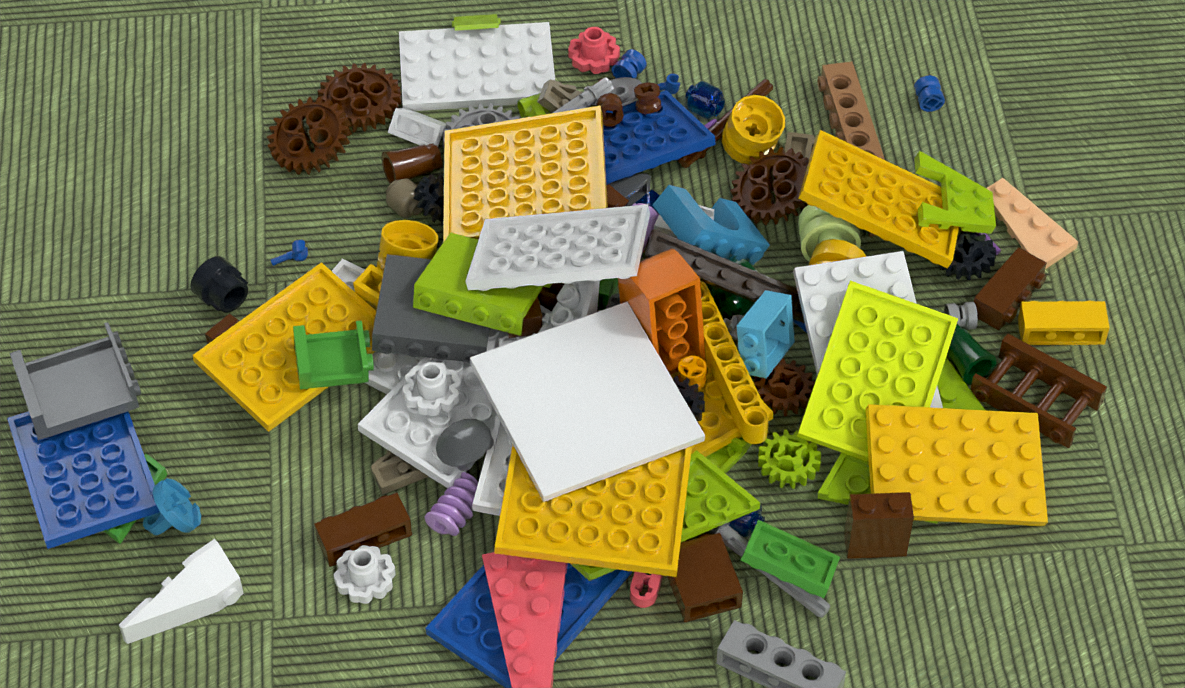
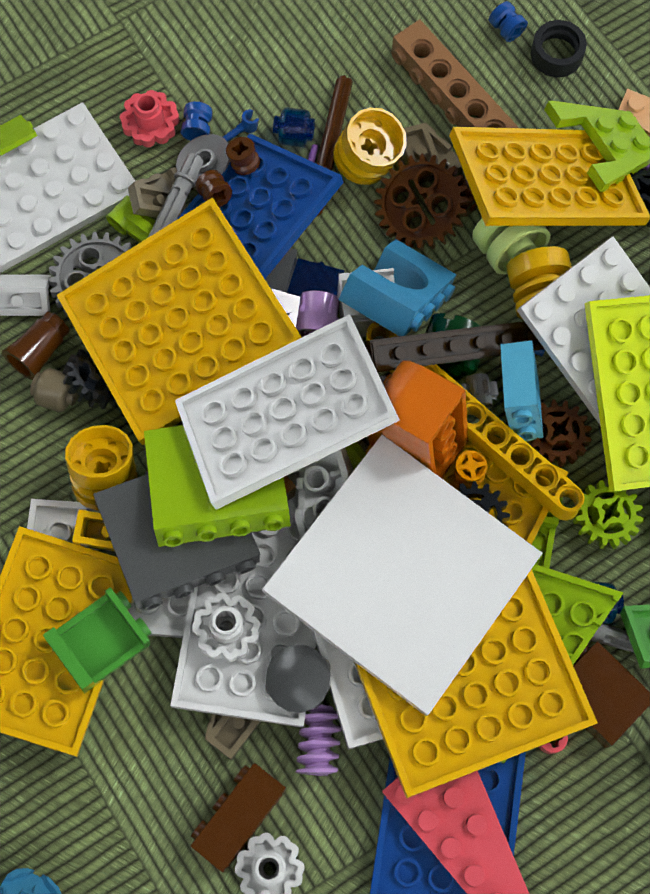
camera: 30 degrees left, 20 degrees up
(965, 114) = (561, 30): none -> black tyre

